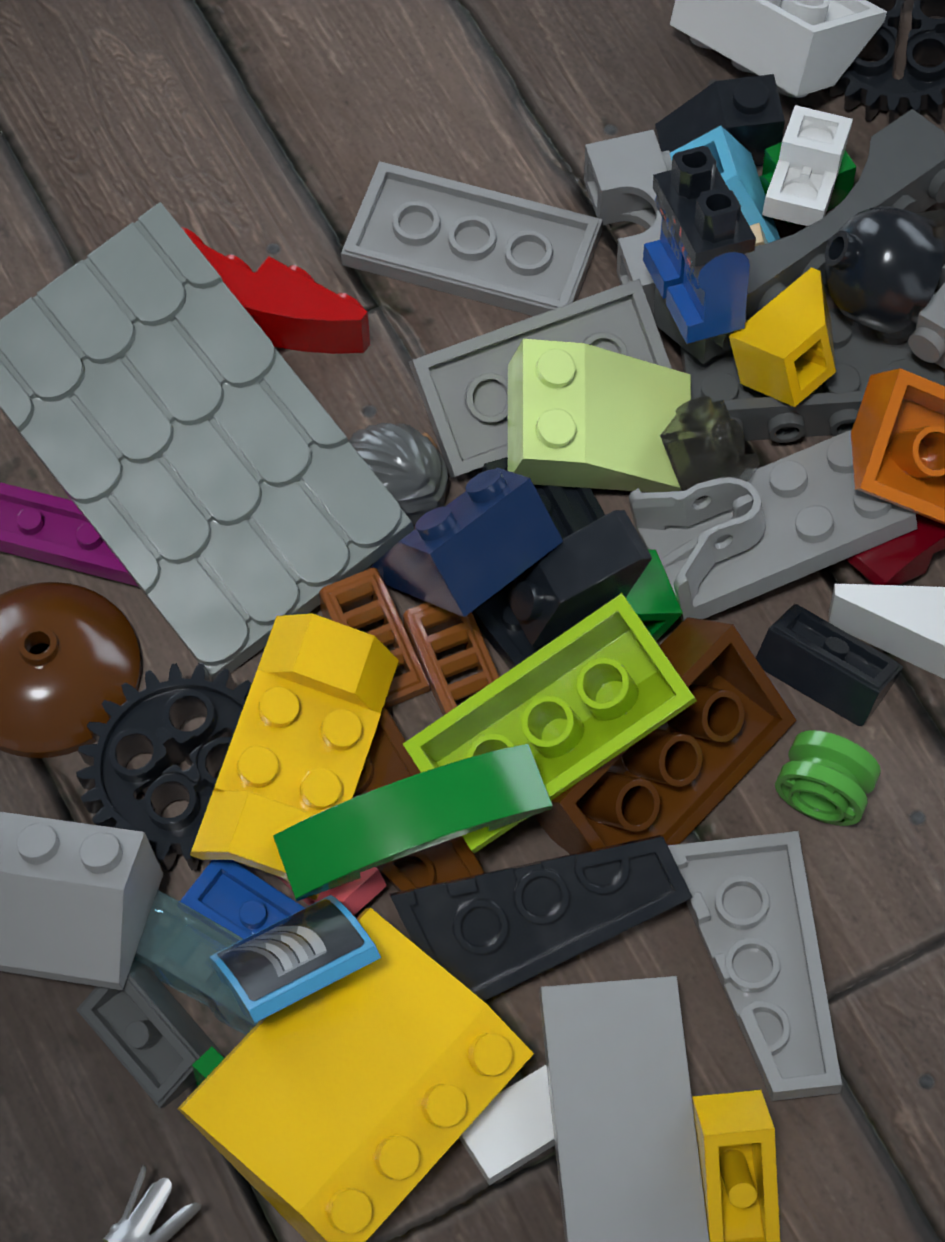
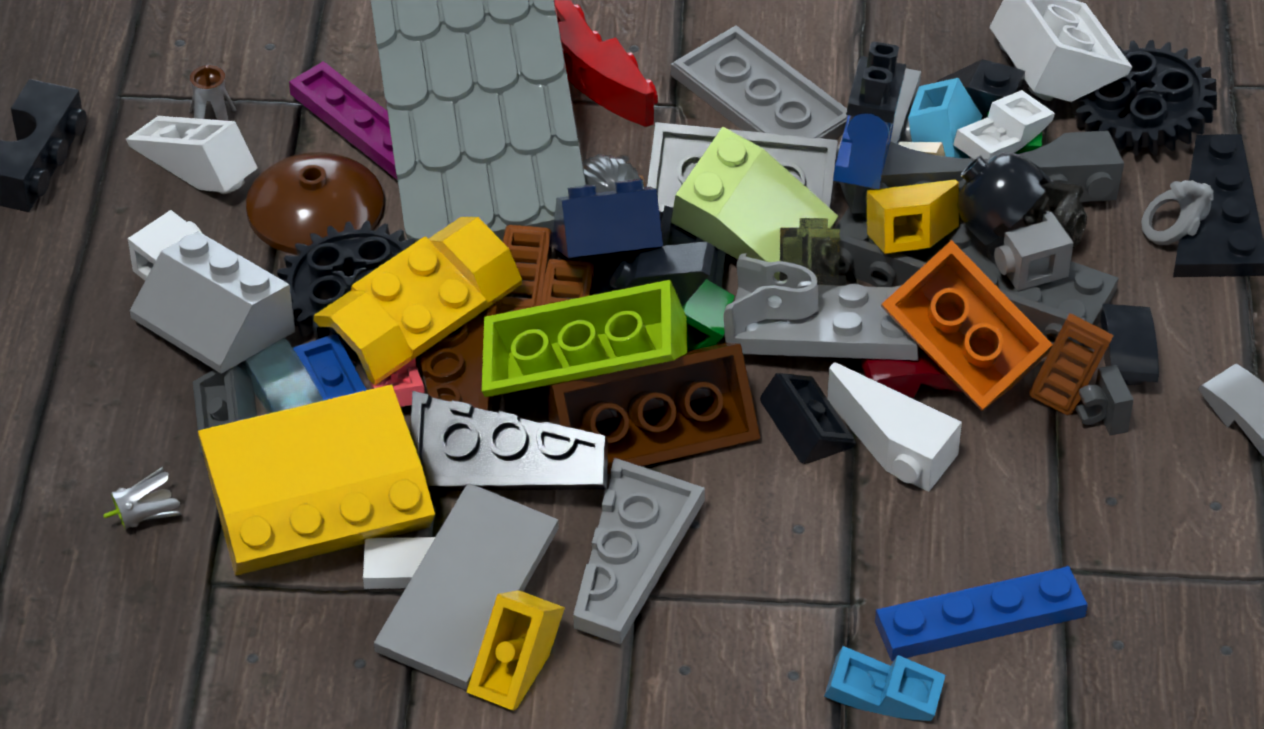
camera: 30 degrees right, 15 degrees down
(294, 958) = (321, 385): slope -> none
(410, 817) = (454, 340): green slope -> none
(828, 777) = (746, 467): bright green wheel -> none

